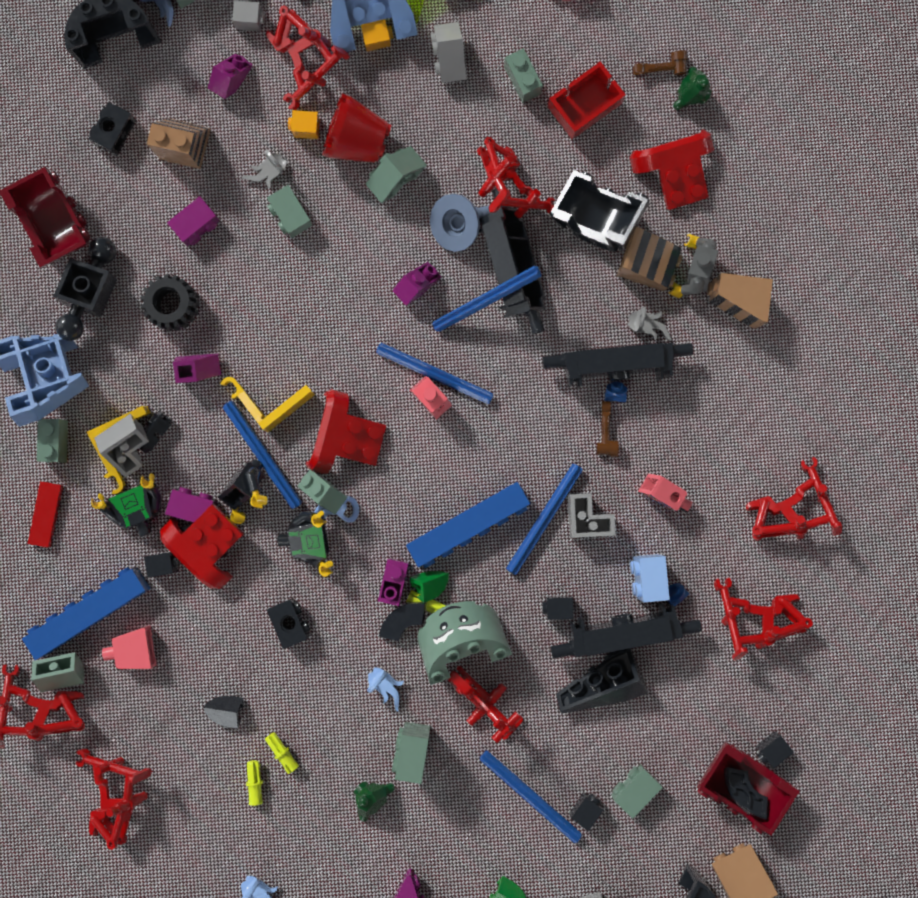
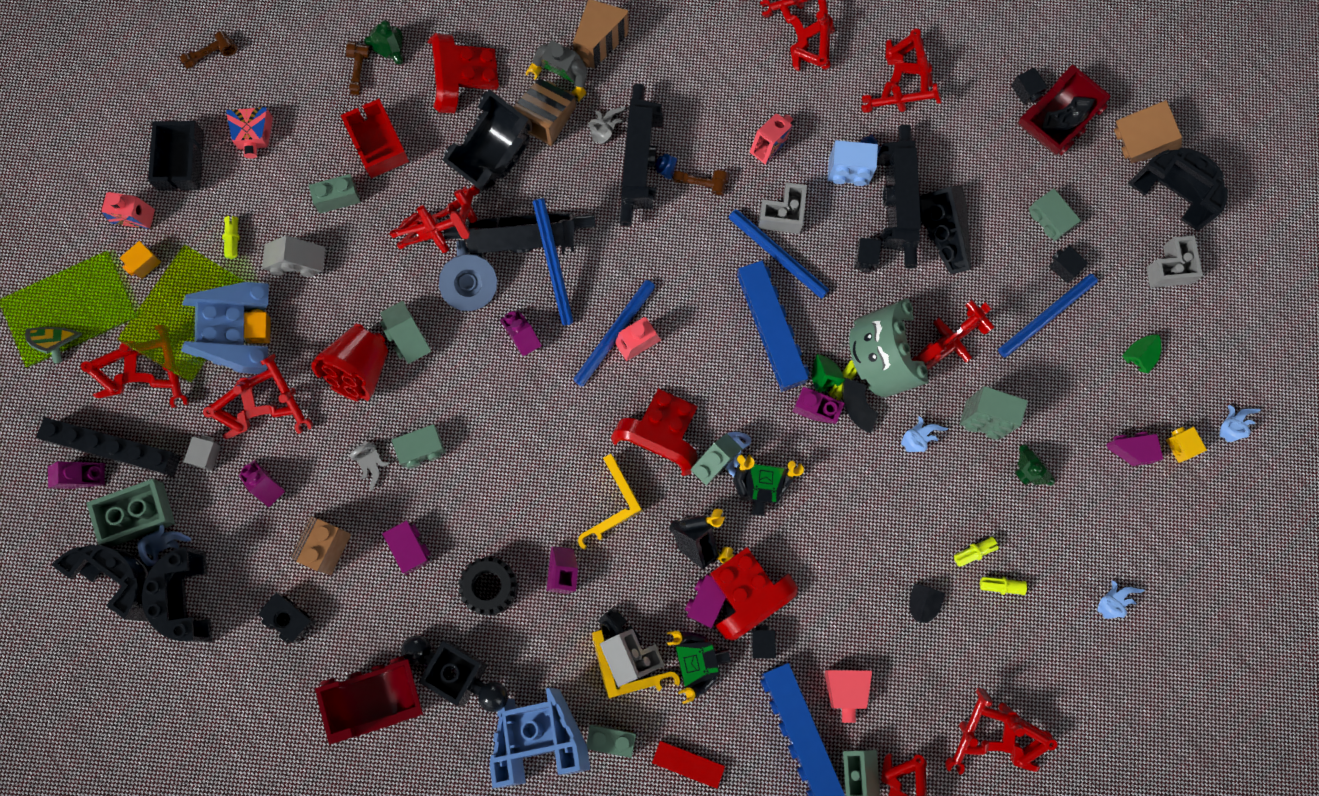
camera: 85 degrees left, 10 degrees down
(262, 454) = (665, 519): blue axle -> none
(286, 635) = (833, 528): black brick -> none
(304, 124) = (331, 415): light orange brick -> none

